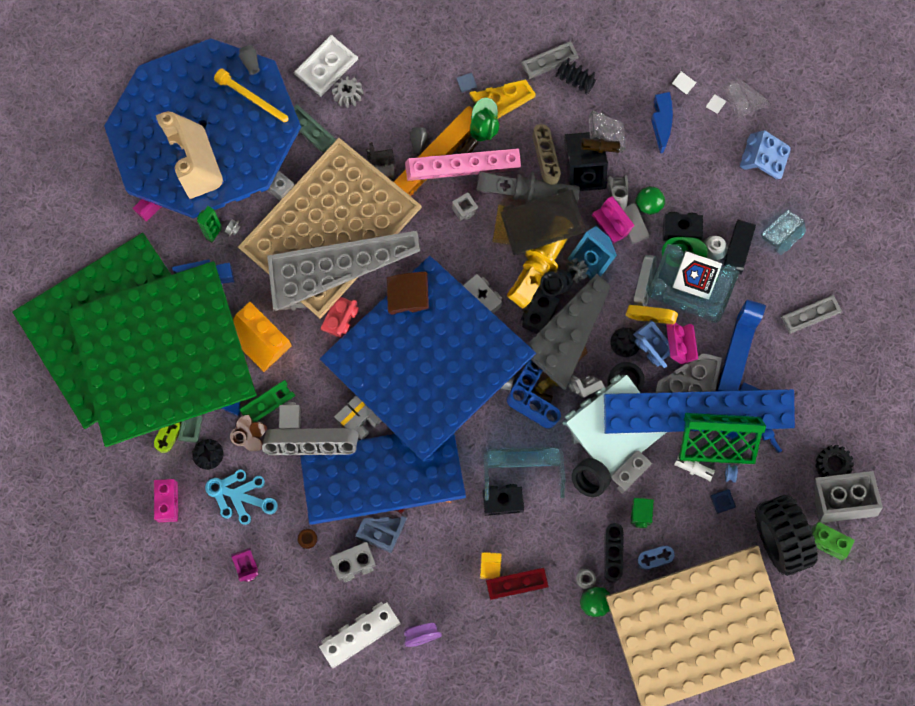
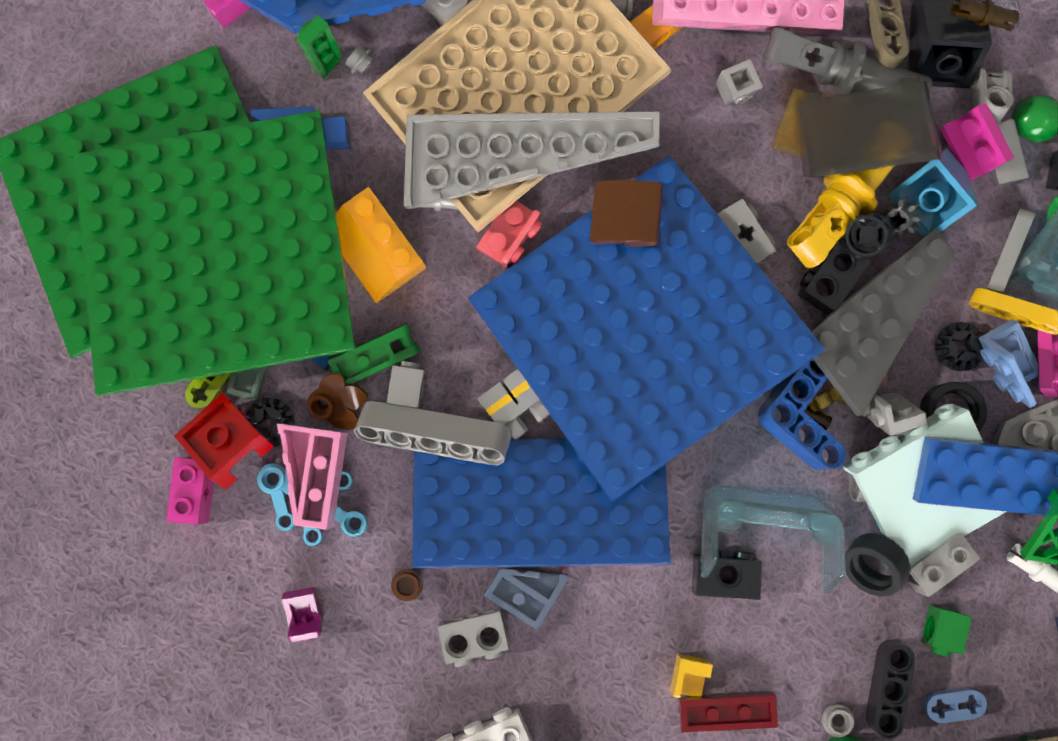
camera: 10 degrees right, 10 degrees up
(181, 464) = (221, 439): none -> red panel
(240, 472) = (313, 472): none -> bright pink wedge

